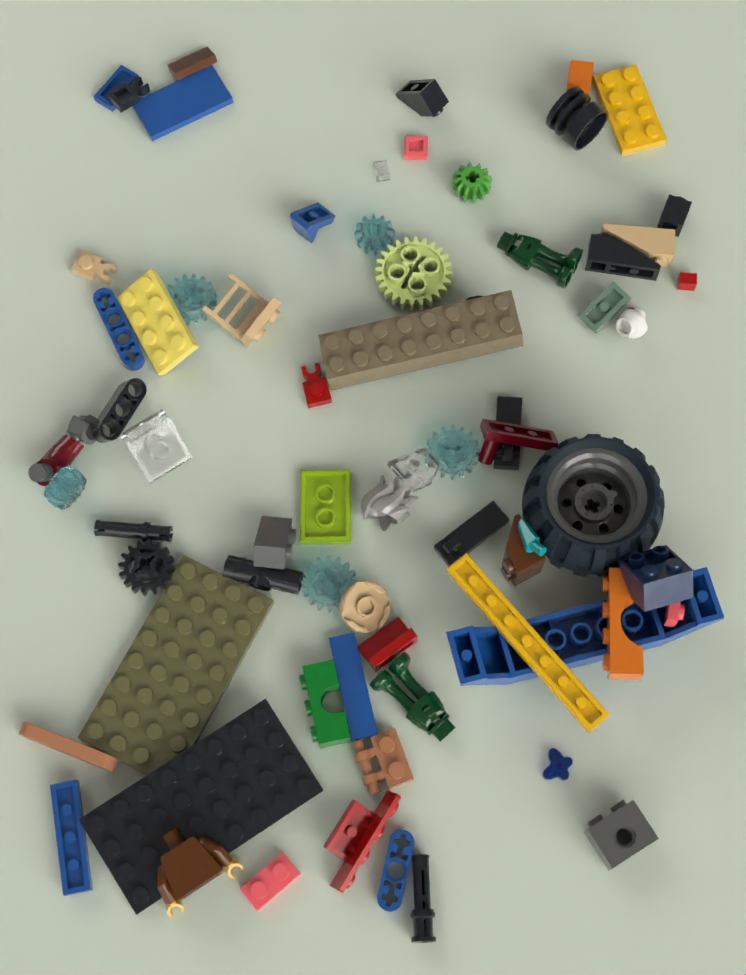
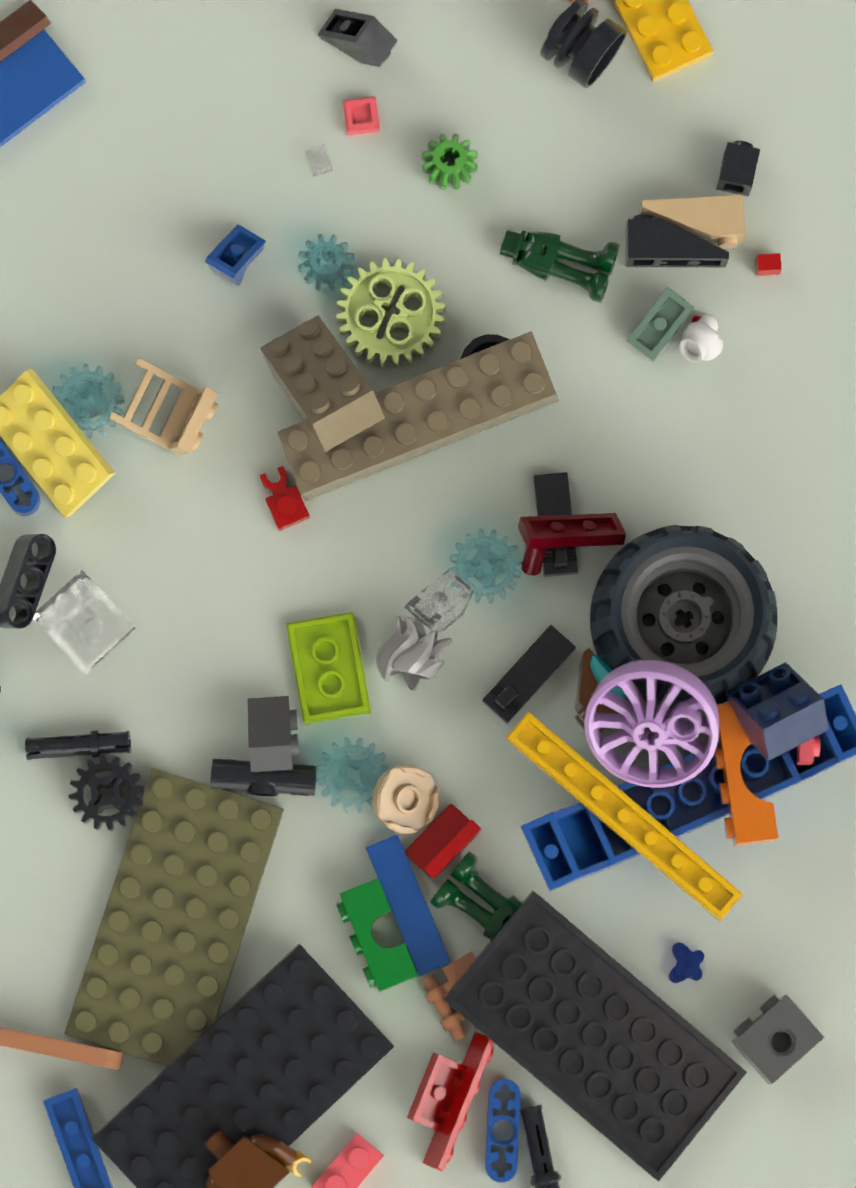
camera: 15 degrees left, 10 degrees up
(356, 305) = (322, 383): none -> dark tan brick
(480, 809) = (595, 1035): none -> black plate
(570, 578) = (653, 725): none -> lavender piece

